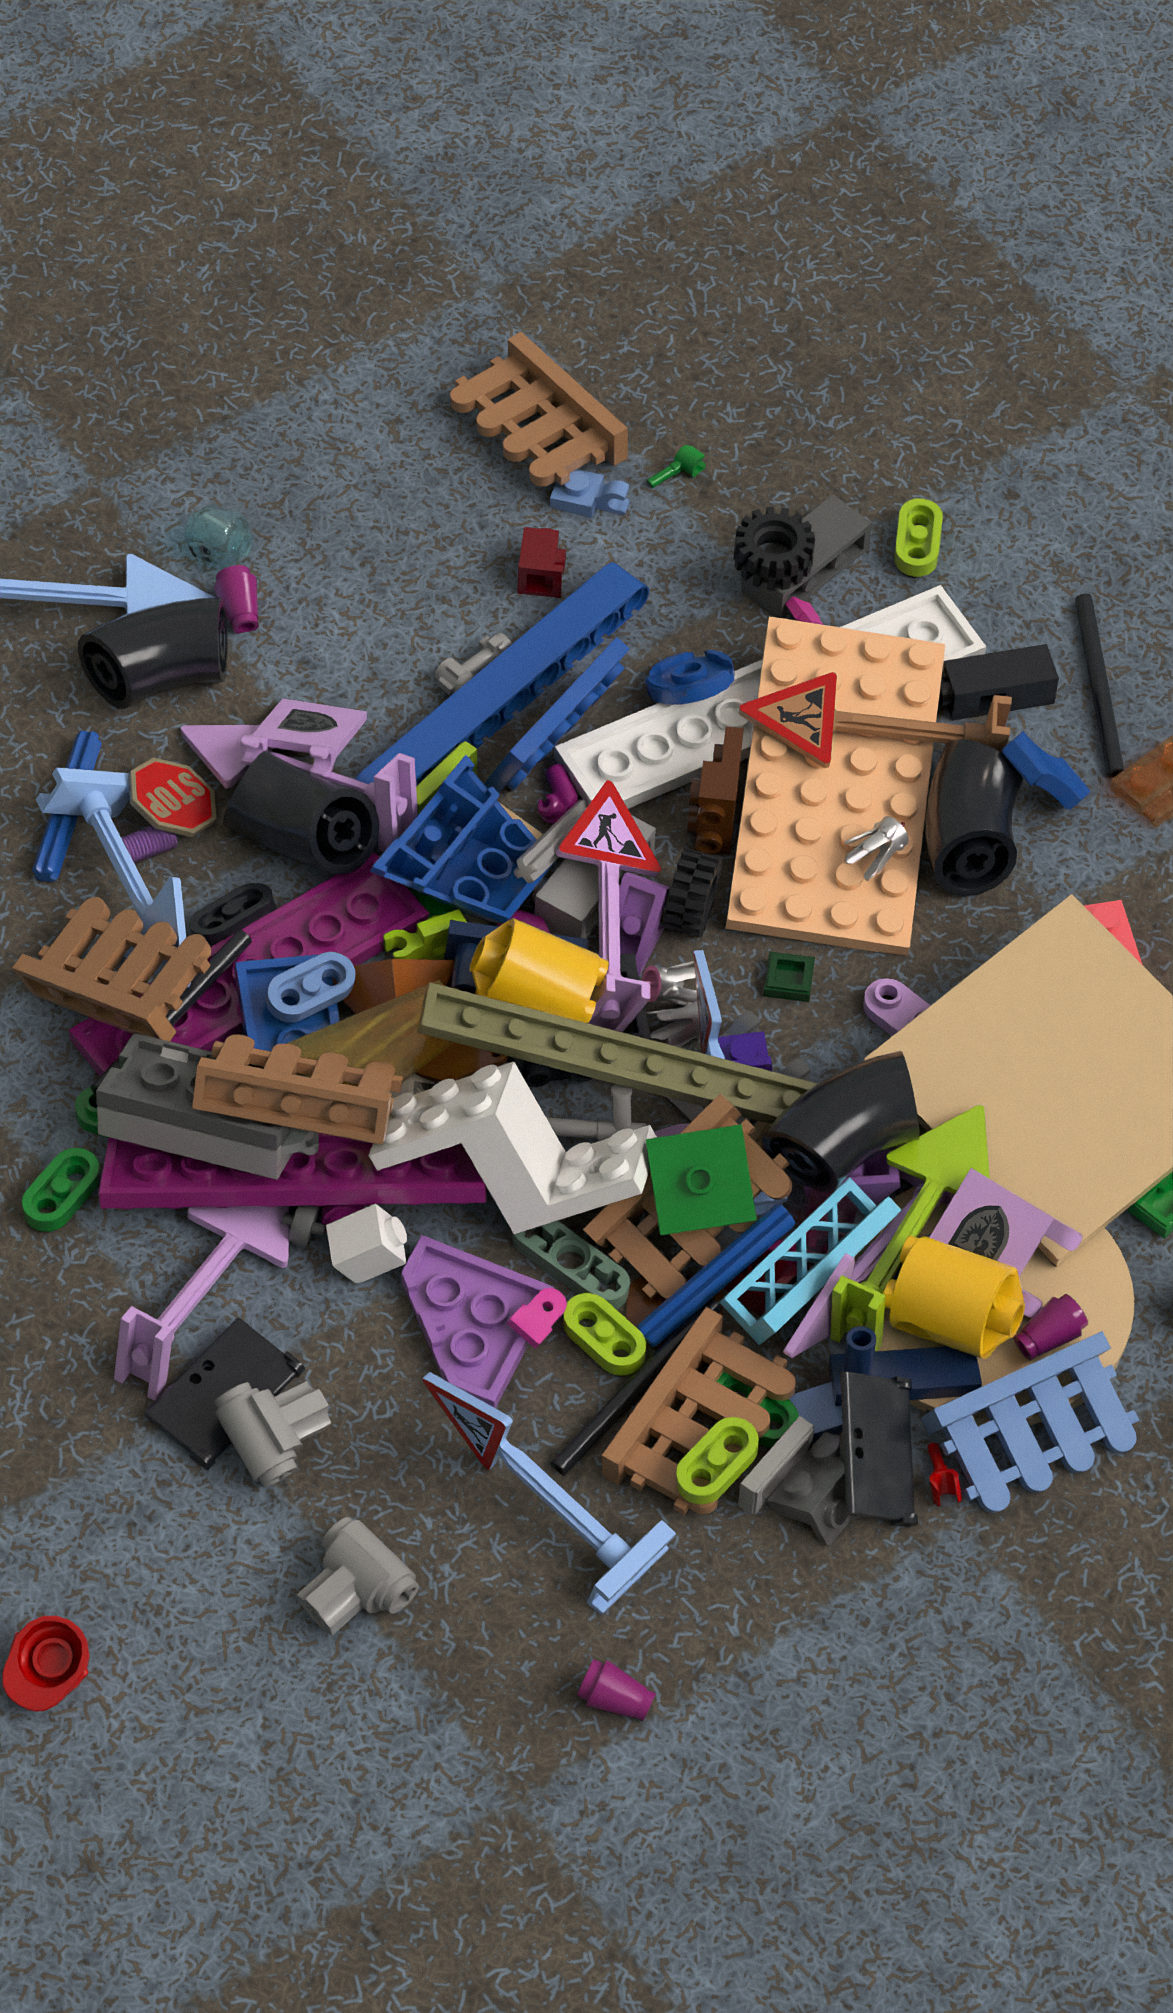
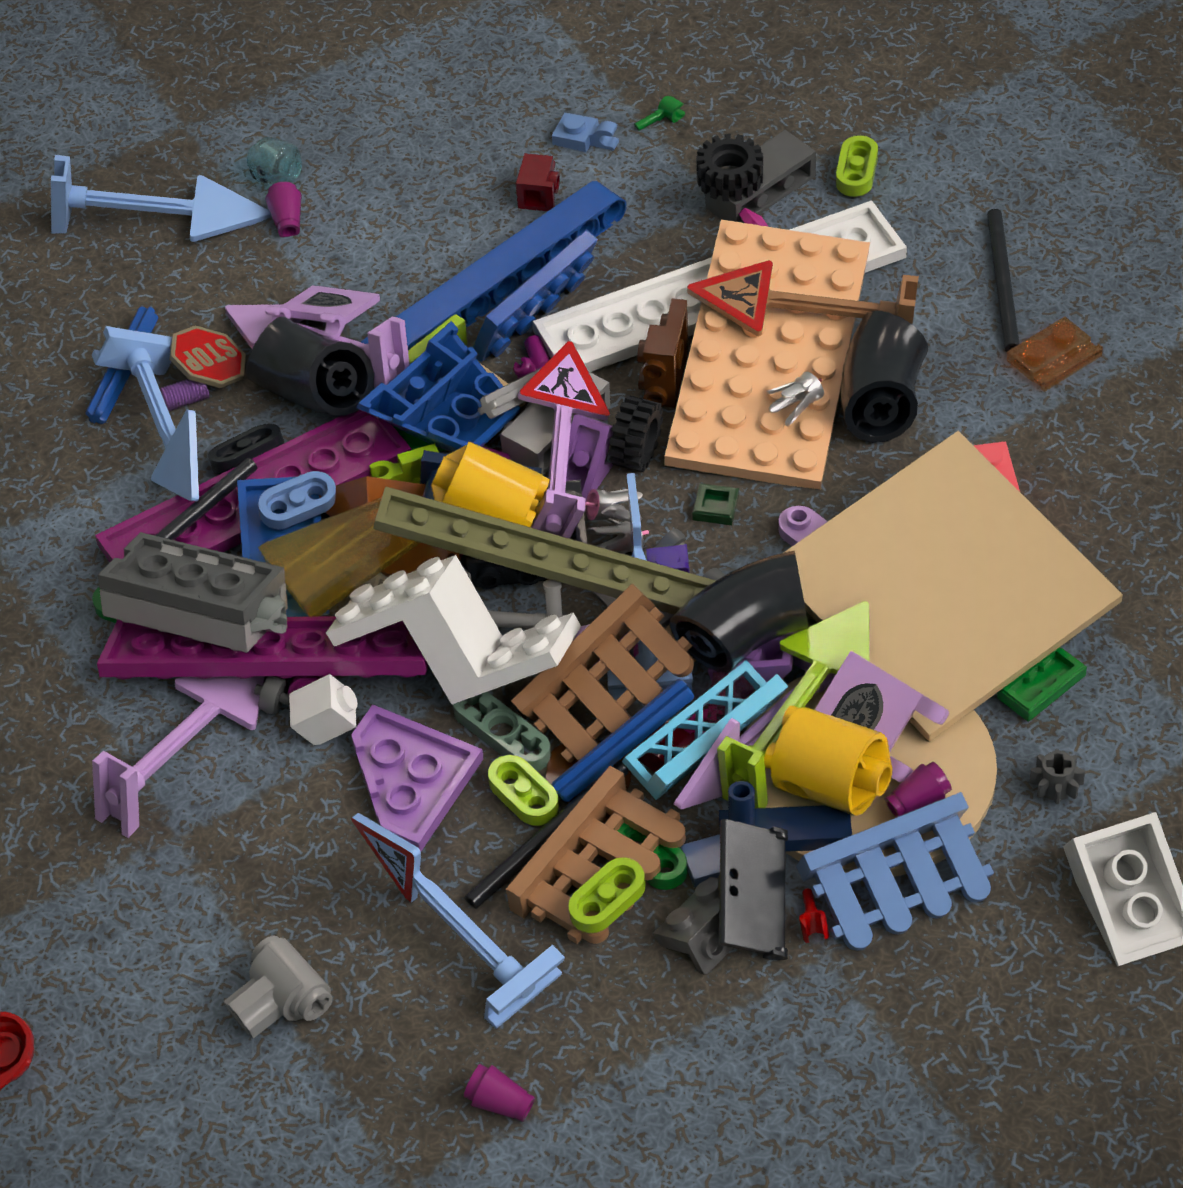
camera: 10 degrees right, 5 degrees down
(57, 1191) = (68, 663): green plate -> none
(117, 1000) = (136, 485): medium nougat fence -> none
(157, 650) = (211, 243): black brick -> none
(188, 1405) = (186, 837): black door -> none
(271, 1428) = (220, 860): light grey piece -> none
(292, 1100) = (264, 575): medium nougat fence -> none
(453, 676) = (453, 264): light grey bar -> none
(533, 1321) = (460, 776): dark pink piece -> none
(559, 399) = (567, 66): medium nougat fence -> none
(689, 679) = (651, 269): blue tile -> none
(701, 1179) = (612, 657): green plate -> none
(775, 1466) = (661, 902): light grey tile -> none
(1018, 673) = (938, 268): black brick -> none
(1045, 771) = (947, 340): blue tile -> none

